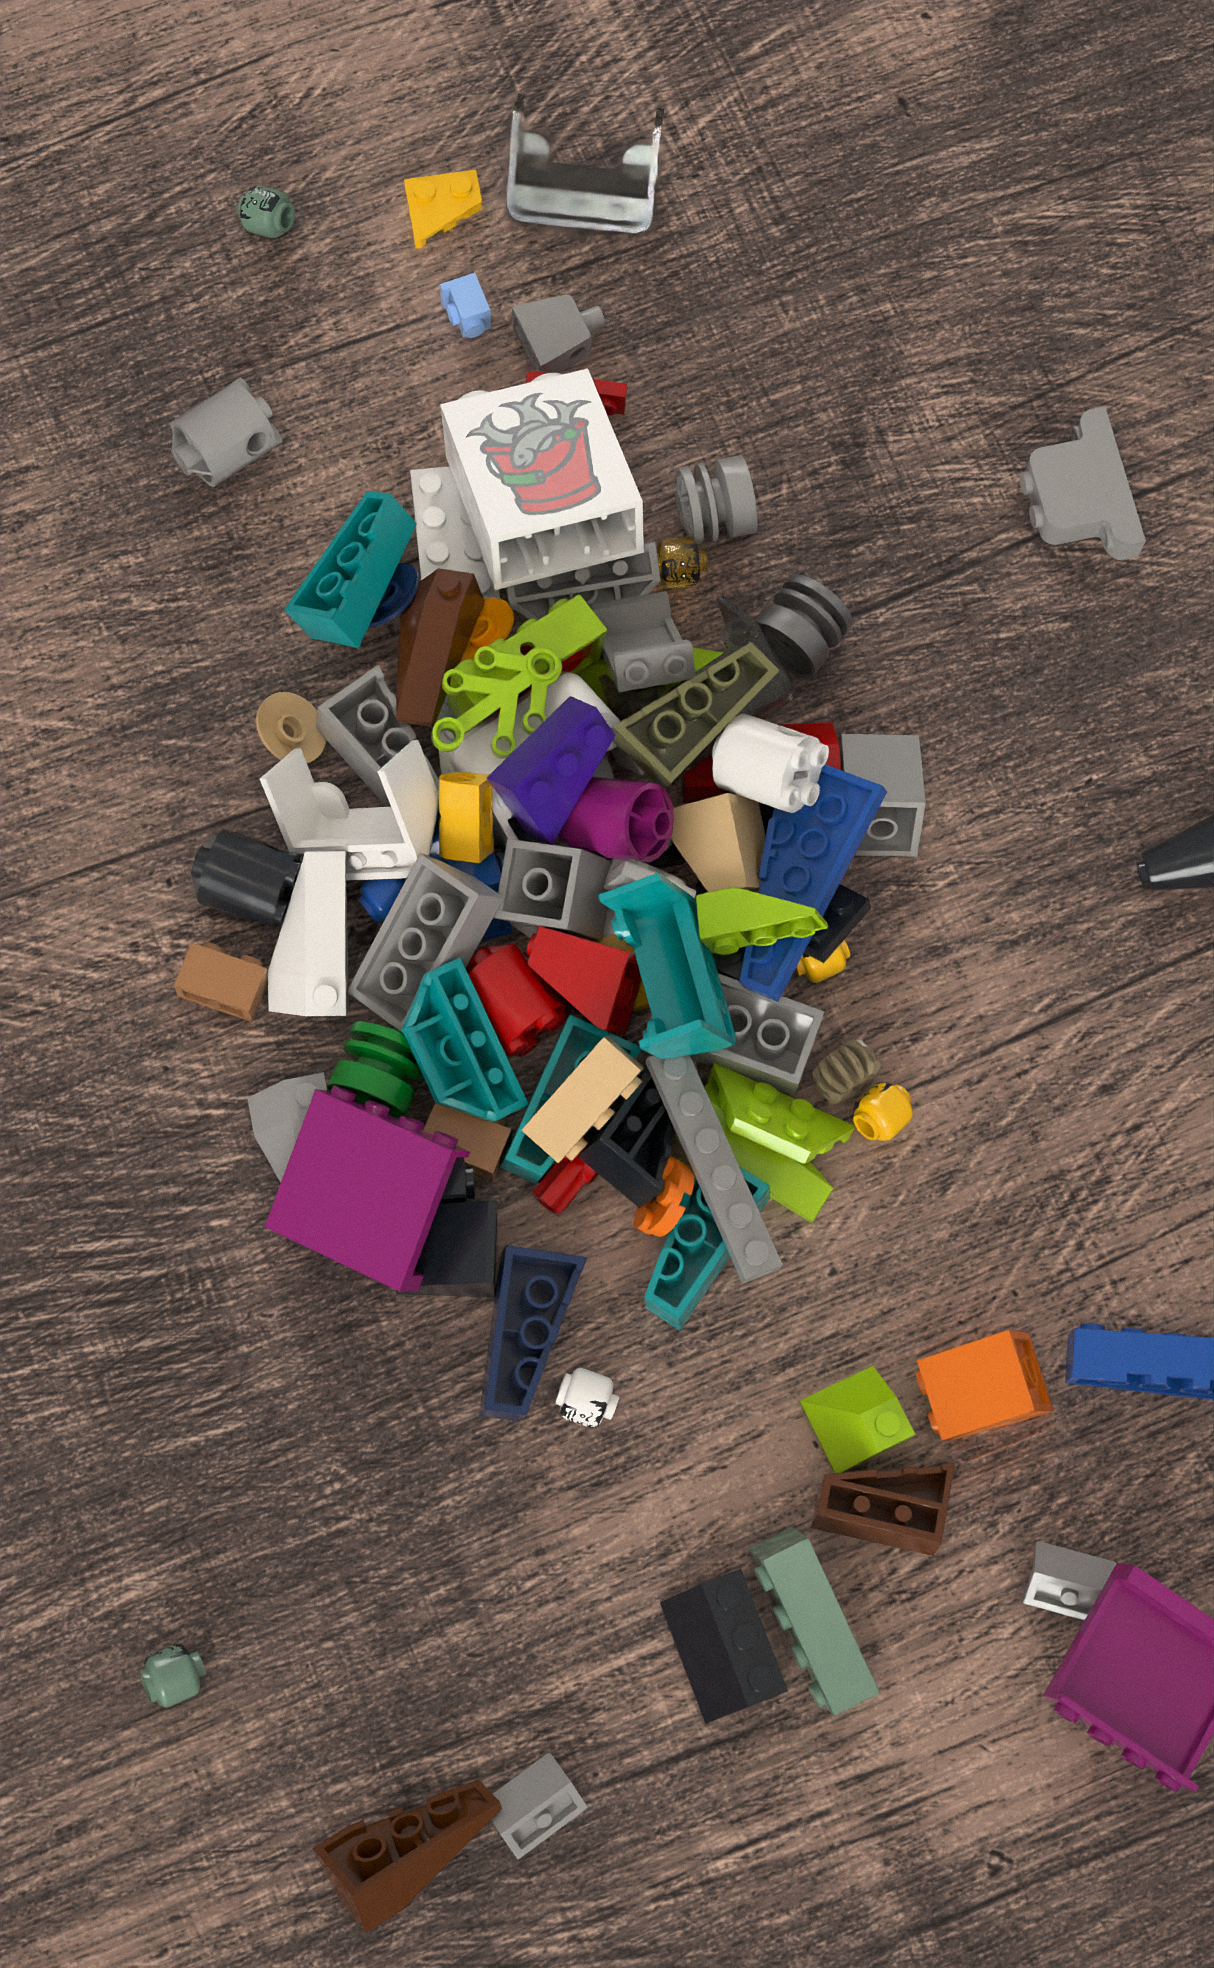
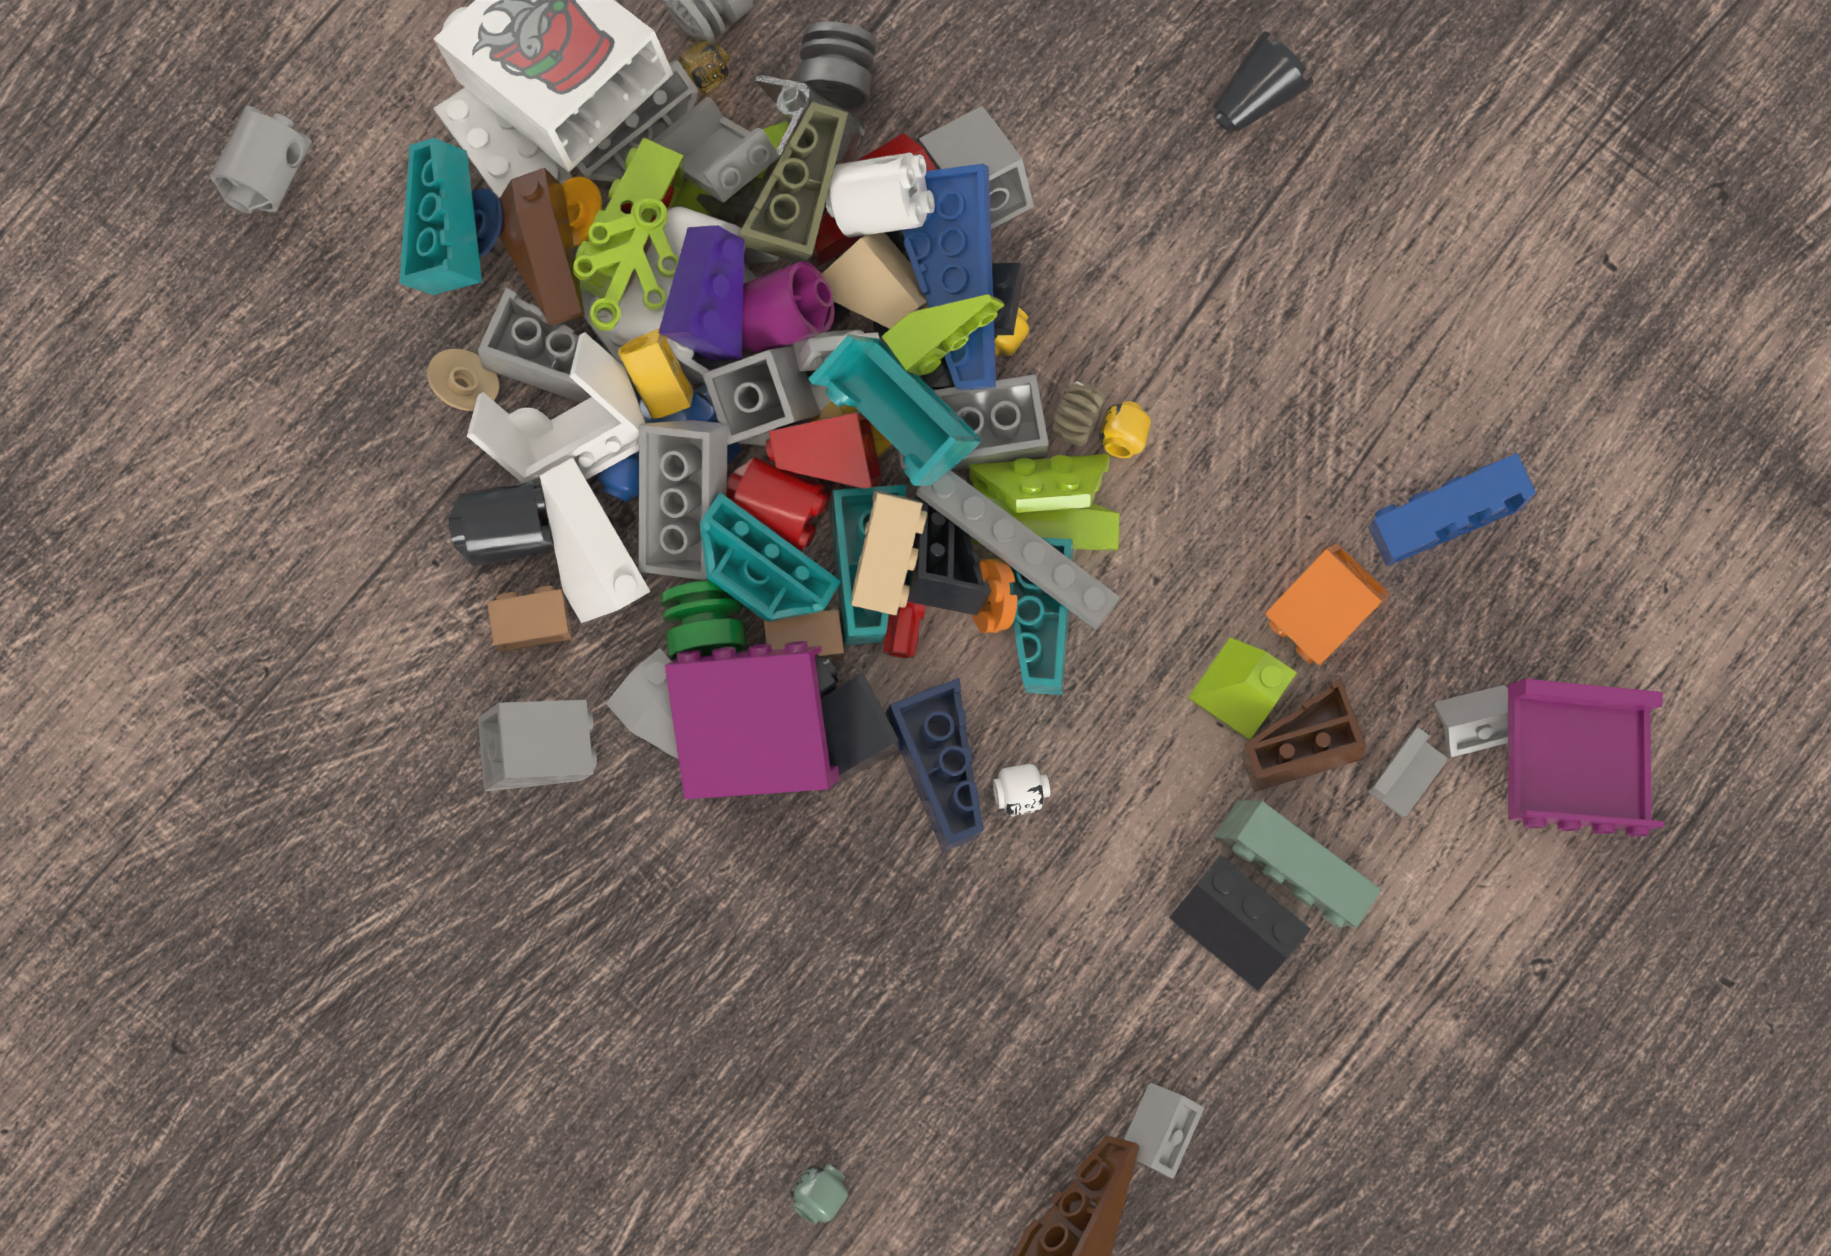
camera: 25 degrees left, 5 degrees up
(160, 1099) = (536, 744): none -> light grey slope
(972, 1596) = (1408, 773): none -> light grey panel

